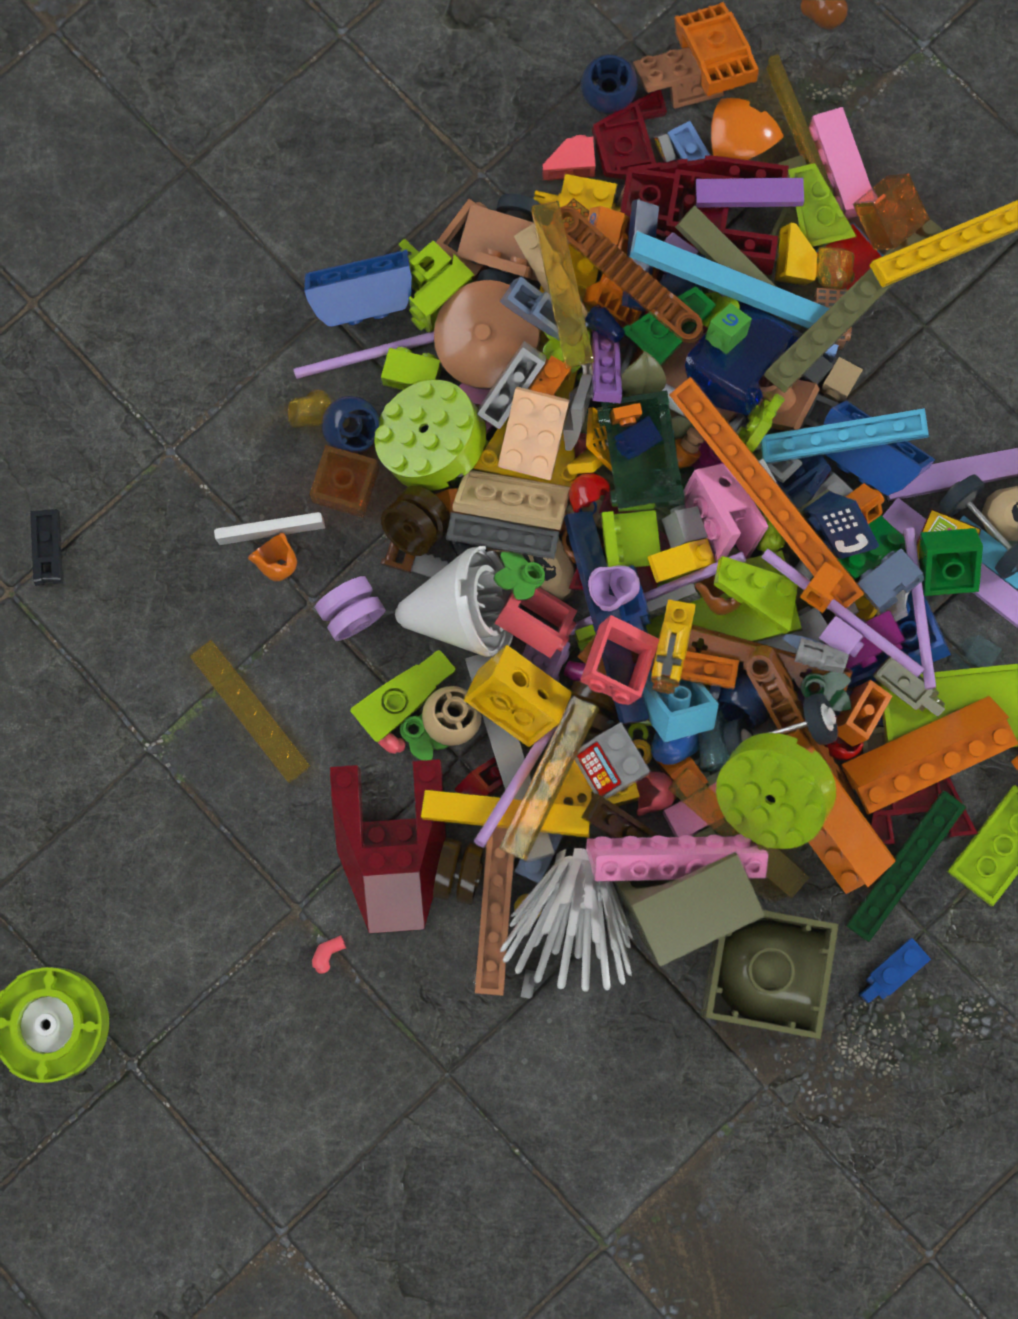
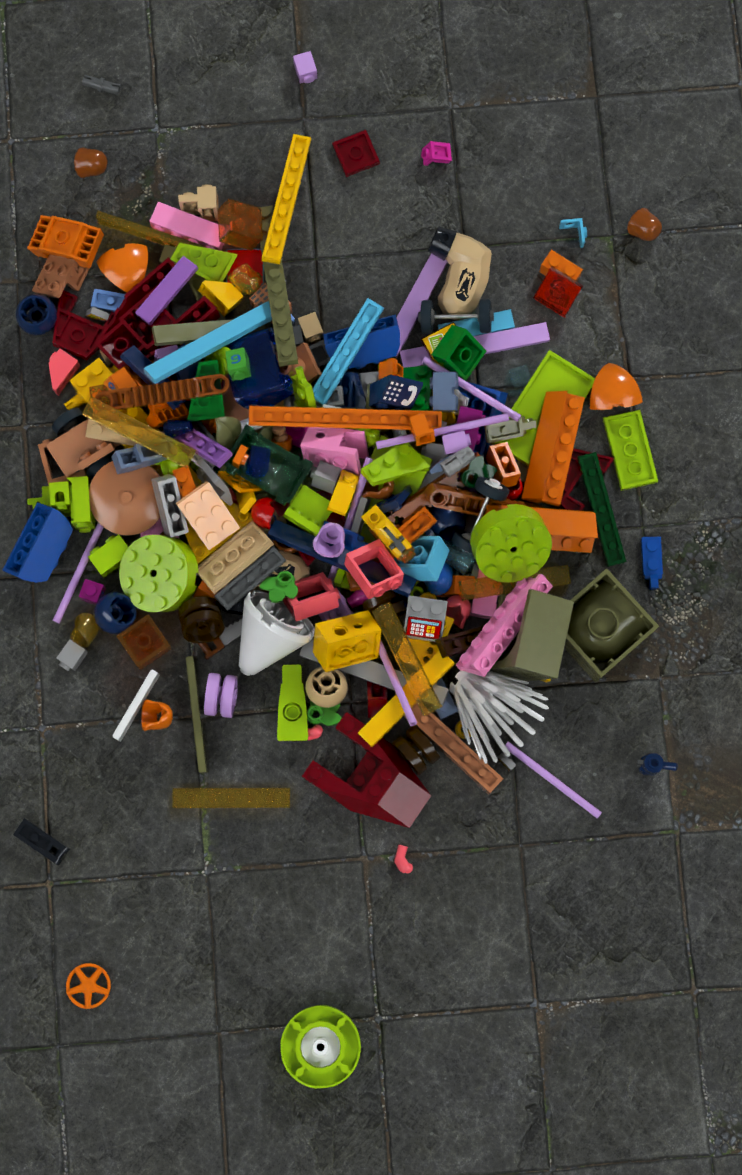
camera: 60 degrees left, 0 degrees up
(270, 418) = (71, 656): none -> light grey brick
(309, 600) = (196, 715): none -> olive tile
(355, 382) = (91, 591): none -> magenta brick
(549, 1054) = (553, 780): none -> lavender piece
(657, 1158) = (653, 763): none -> dark blue piece
(718, 624) = (395, 501): none -> dark blue wing
(881, 154) = (203, 203): none -> tan brick

